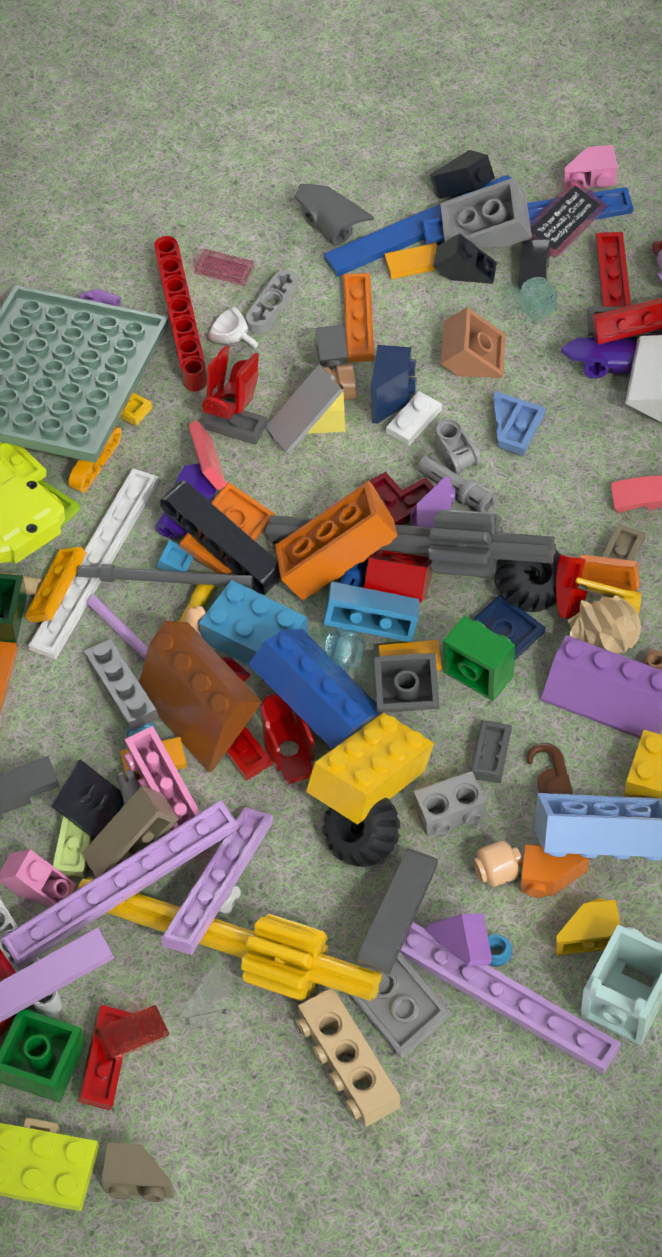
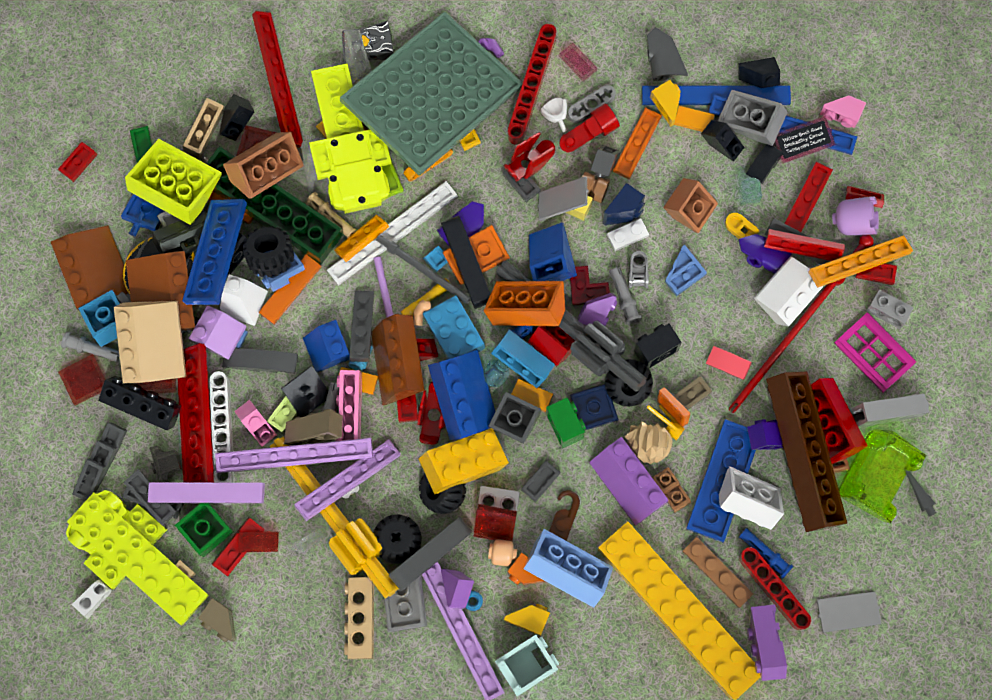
camera: 30 degrees right, 20 degrees up
(85, 731) = (326, 346): none -> blue slope
(207, 455) = (490, 199): coral tile -> none
(296, 312) = (601, 122): none -> red piece
(326, 474) = (551, 255): none -> blue slope
(341, 913) = (410, 538): none -> black wheel
(367, 250) = (666, 99): none -> yellow slope
(462, 827) = (494, 523): none -> clear red plate
(542, 505) = (657, 346): none -> black brick
(543, 342) = (736, 222): none -> yellow plate
(567, 590) = (639, 411): red slope -> none

